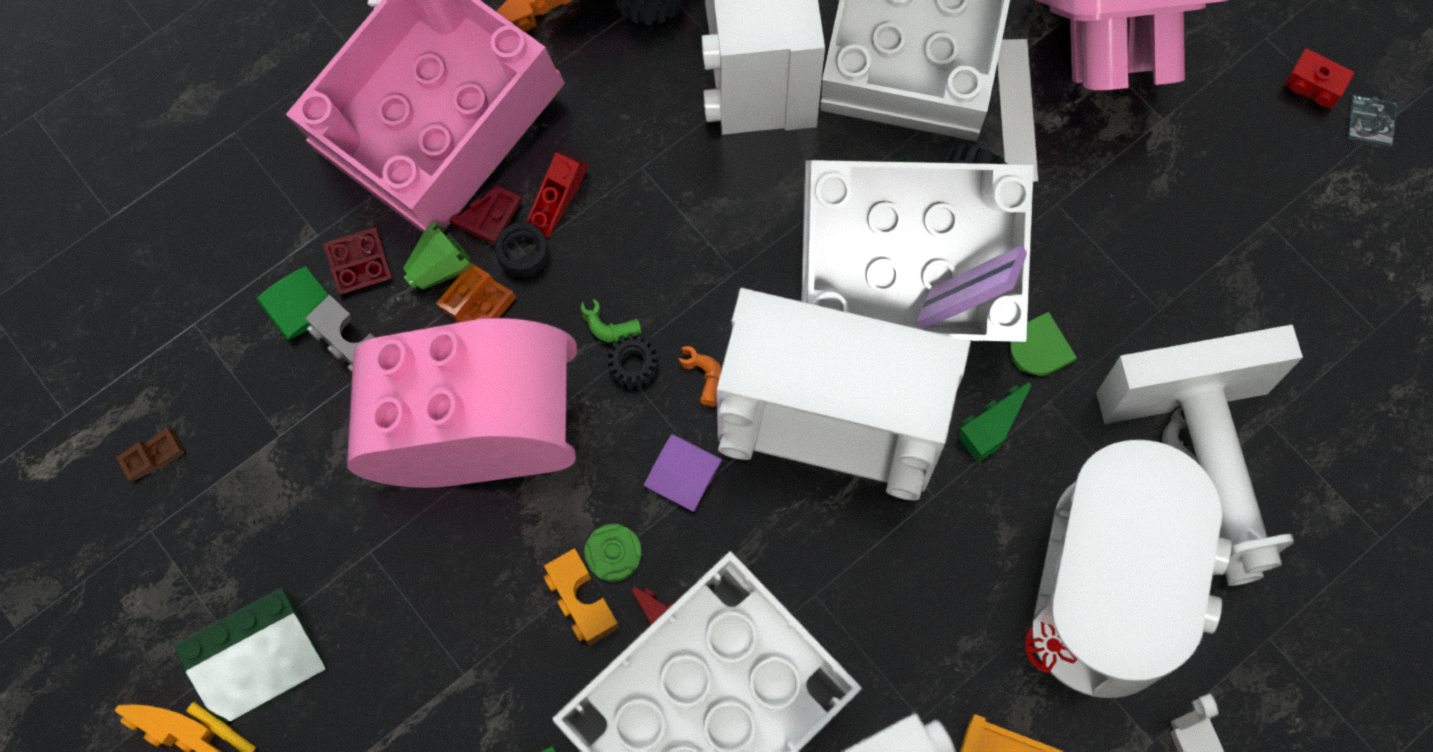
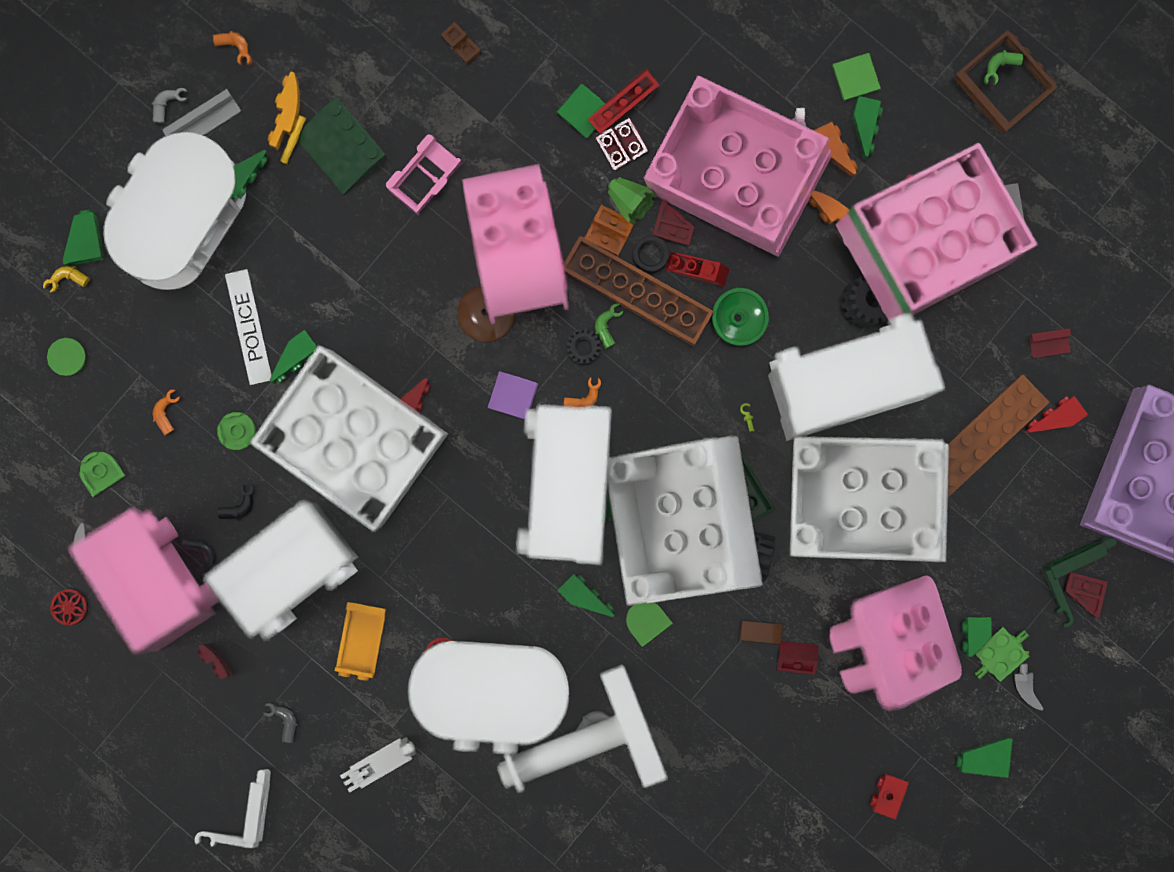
camera: 80 degrees right, 15 degrees up
(296, 242) = (624, 100): none -> red slope
(310, 515) = (439, 157): none -> bright pink piece
(327, 323) = (551, 166): light grey arch -> none
(556, 509) = (477, 325): none -> reddish brown dish
(583, 257) = (637, 291): none -> dark orange brick
(591, 620) = (427, 333): light orange arch -> none
(613, 552) = (451, 360): bright green tile -> none
(631, 136) = (752, 314): none -> green dish
(776, 166) = (748, 418): none -> lime hand
(972, 287) = (655, 562): lavender tile -> none
(1016, 104) = (827, 582): white sticker -> none
(1075, 200) = (760, 632): none -> reddish brown slope
(1117, 159) = (797, 657): none -> dark red panel
(1372, 121) = (866, 838): piece -> none

